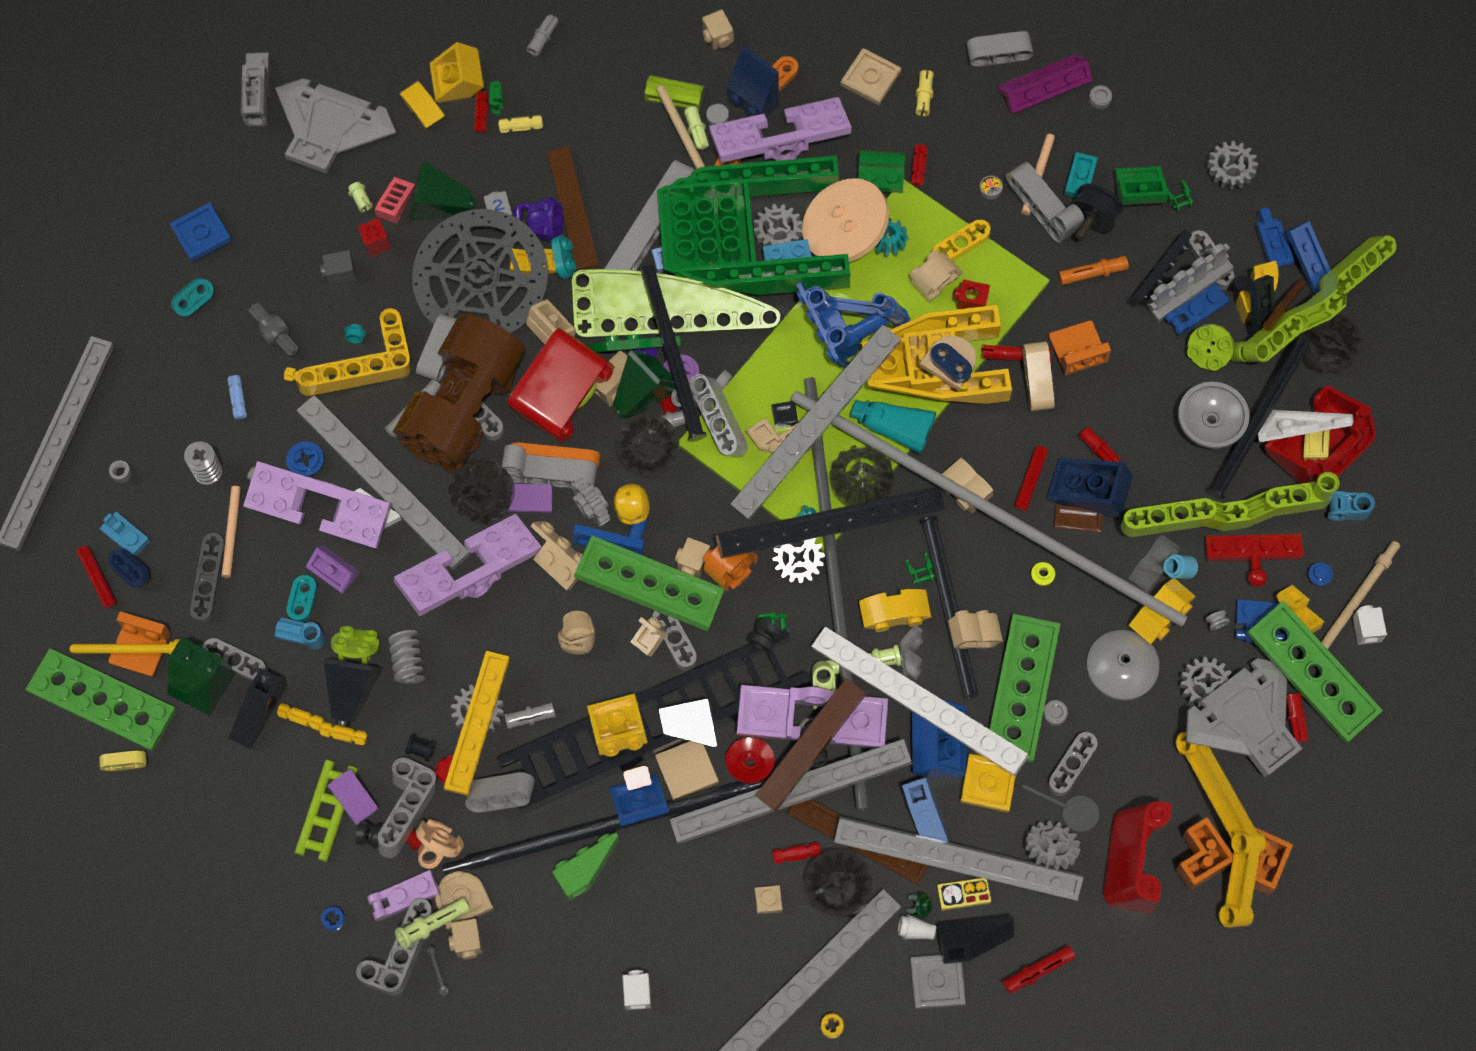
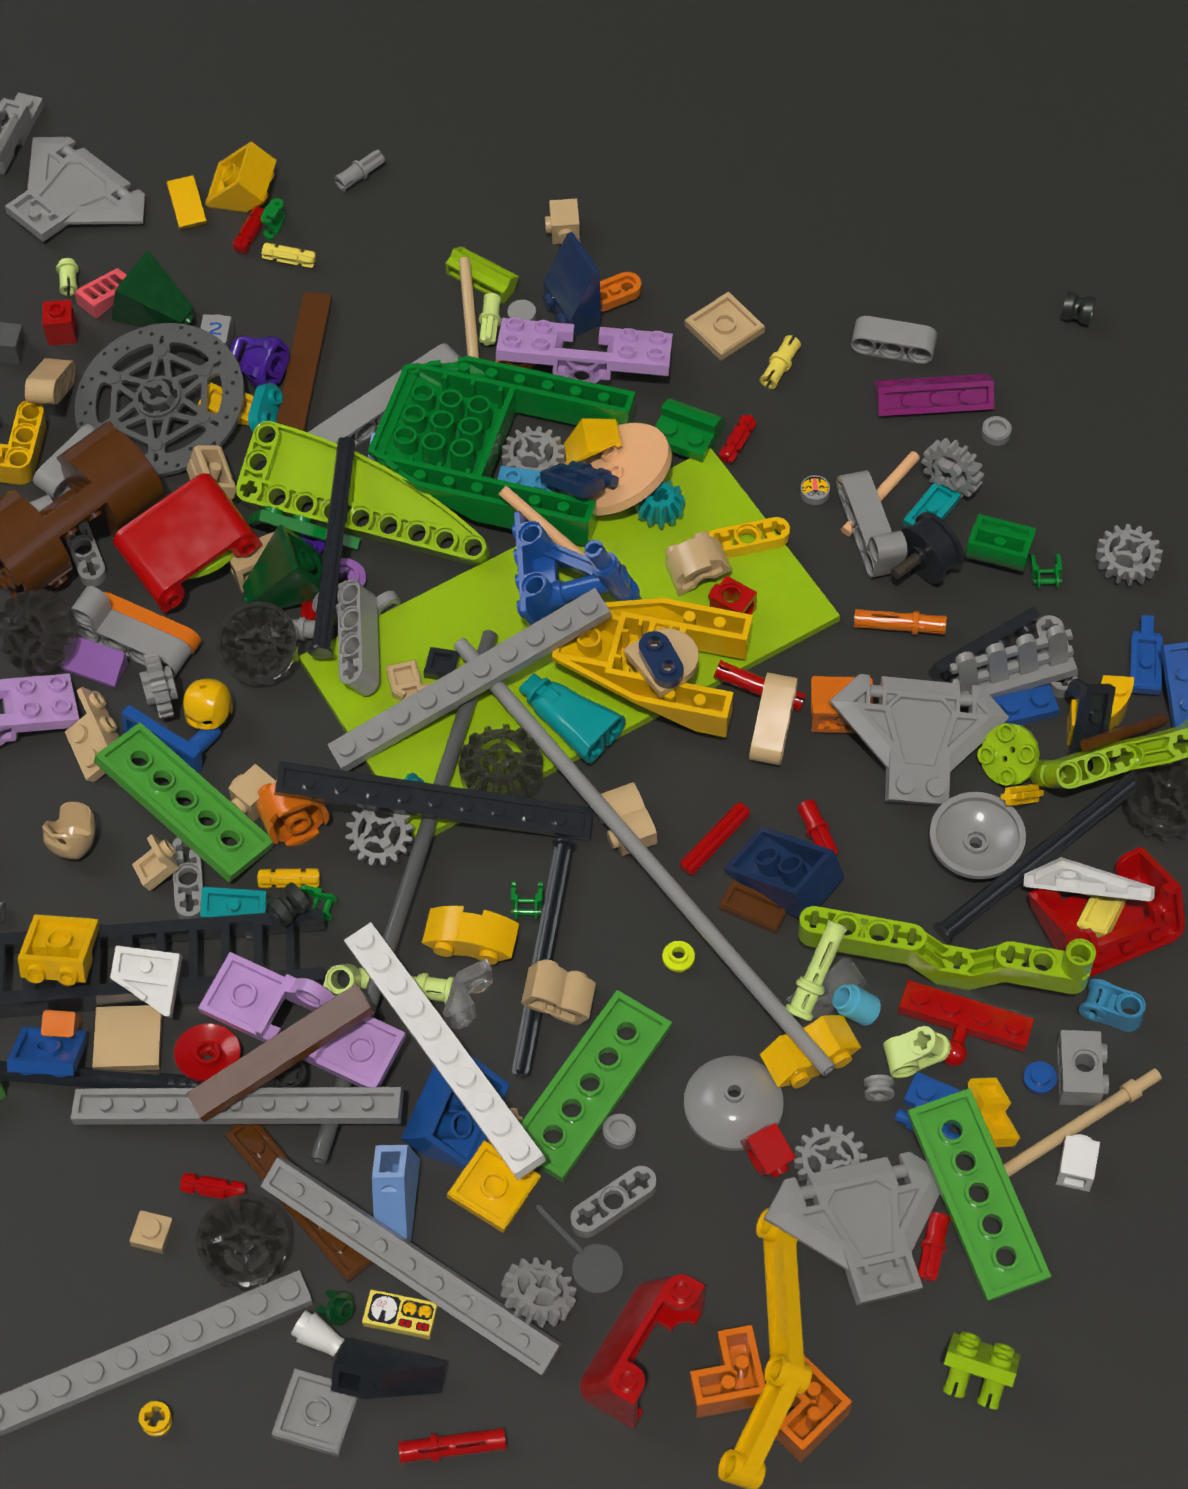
camera: 20 degrees right, 10 degrees down
(393, 289) = (50, 381): none -> tan beam
(716, 646) = (231, 902): none -> teal plate
(746, 612) = (283, 877): none -> yellow axle
(811, 282) = (531, 515): none -> light nougat bar
(818, 204) = (591, 438): none -> yellow slope
(827, 240) = (578, 478): none -> dark blue plate
(1086, 139) = (953, 467): none -> light grey gear
(1143, 351) = (918, 731): none -> light grey plate
(1149, 565) = (813, 988): none -> yellowish green pin
(1163, 691) = (768, 1151): none -> red brick
(1229, 588) = (915, 1051): none -> yellowish green piece
(1231, 374) = (1022, 794): none -> yellow axle
(1345, 571) = (1075, 1085): none -> light grey brick
(1362, 784) = (994, 1363): none -> lime plate

